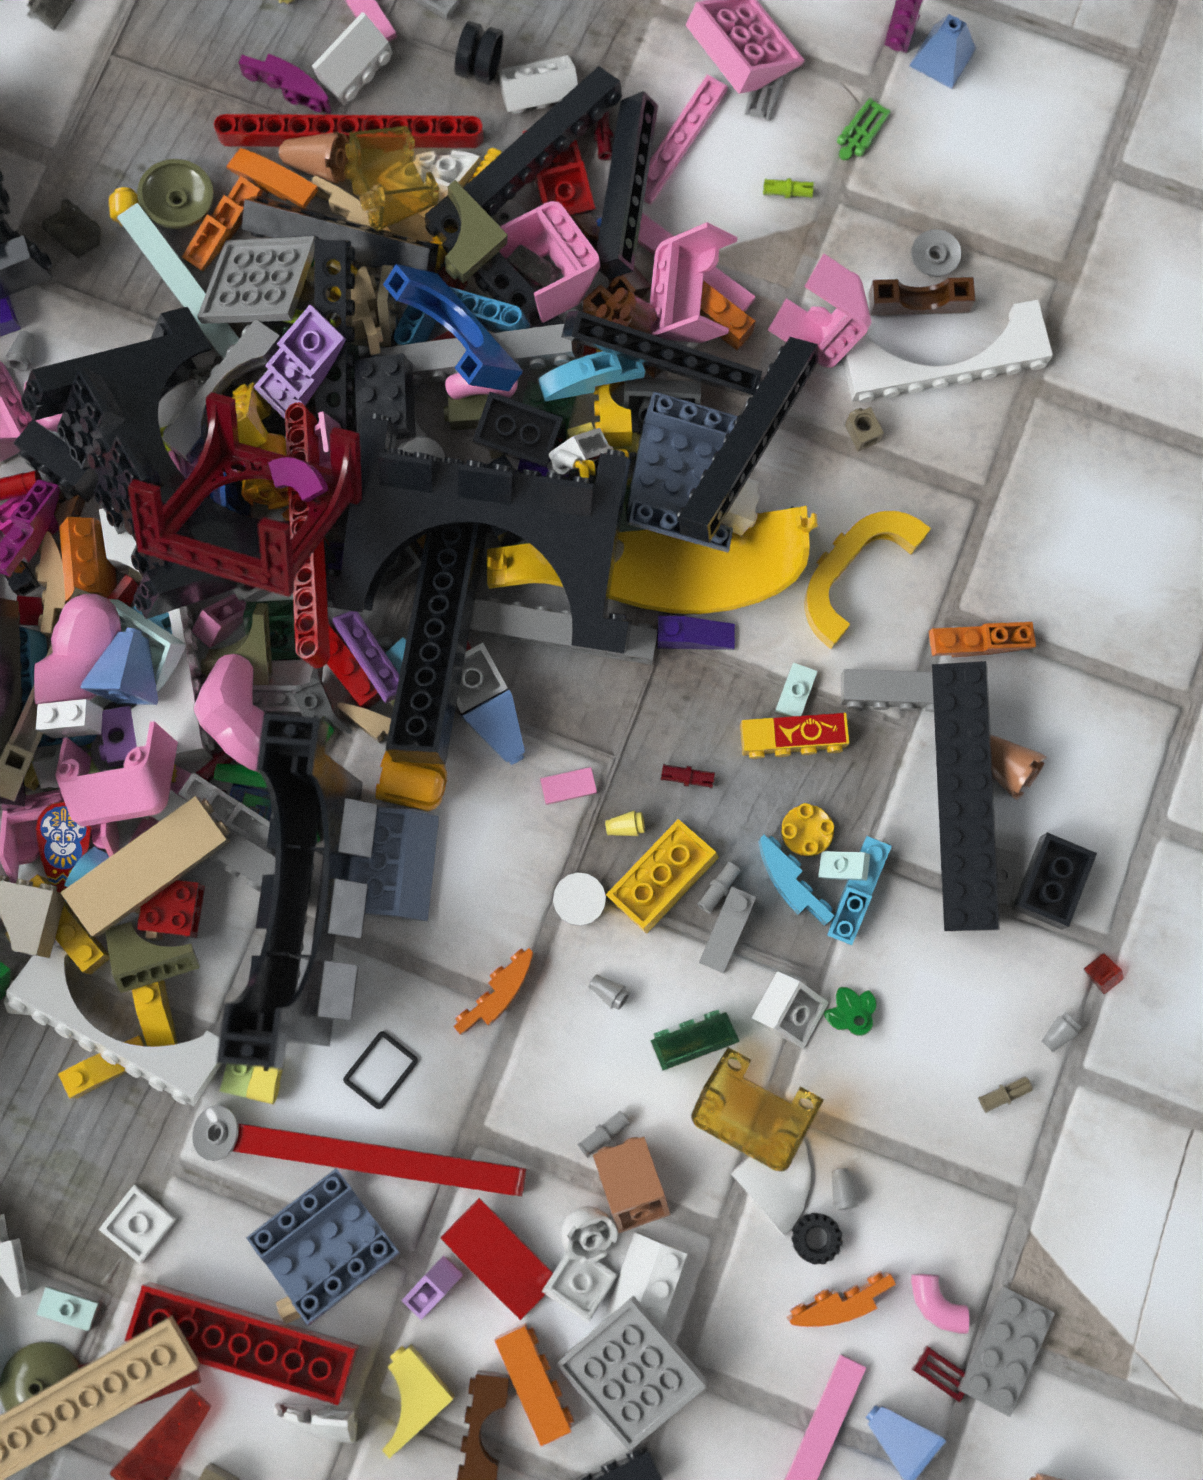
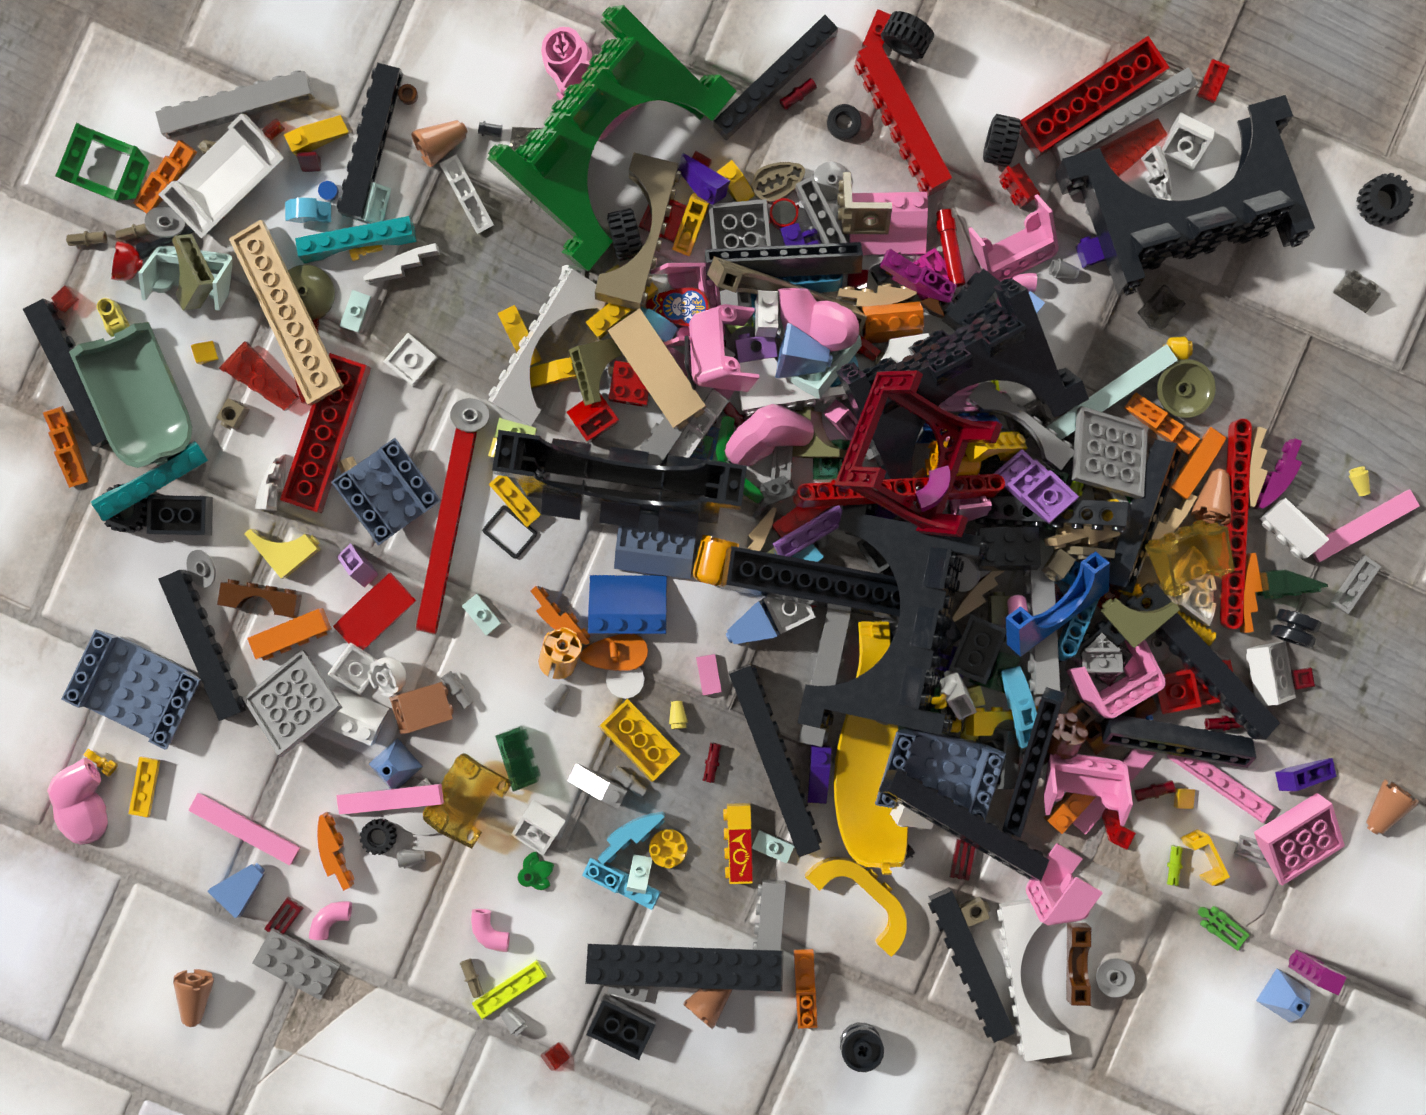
camera: 90 degrees right, 10 degrees up
(136, 818) = (687, 351): none -> black piece
(219, 957) = (593, 419): none -> red slope
(284, 105) = (1257, 475): none -> tan slope
(334, 1063) = (515, 500): none -> yellow plate
(404, 335) = (1058, 565): none -> dark tan brick
(422, 68) = (1284, 583): none -> clear green slope
(426, 106) = (1252, 585): none -> orange slope
(452, 443) = (974, 596): none -> tan slope
(476, 899) = (627, 604): none -> blue slope
(496, 1104) = (481, 614): none -> light aqua plate
(522, 276) = (1102, 657): none -> light grey slope
(543, 47) = (1303, 678): none -> dark red tile
(543, 912) = (616, 653): none -> orange shield
(543, 996) = (552, 653): none -> light orange cylinder
(664, 39) = (1305, 775): none -> dark purple slope
(677, 690) = (775, 763): none -> black piece
(694, 213) = (1154, 791): none -> dark red pin
(702, 181) = (1184, 798): none -> yellow slope
(709, 1205) = (395, 765): none -> medium blue slope
(750, 260) = (1115, 832): none -> red tile
(761, 1221) = (390, 799): none -> bright pink tile
(771, 140) = (1198, 839): none -> yellow panel
(796, 446) = (955, 857): none -> dark red tile
(933, 429) = (971, 964): none -> black brick
(940, 1078) = (486, 934): none -> bright pink cylinder
(1017, 1041) = (509, 989): none -> neon yellow tile
(1053, 562) = (864, 1058): none -> black wheel

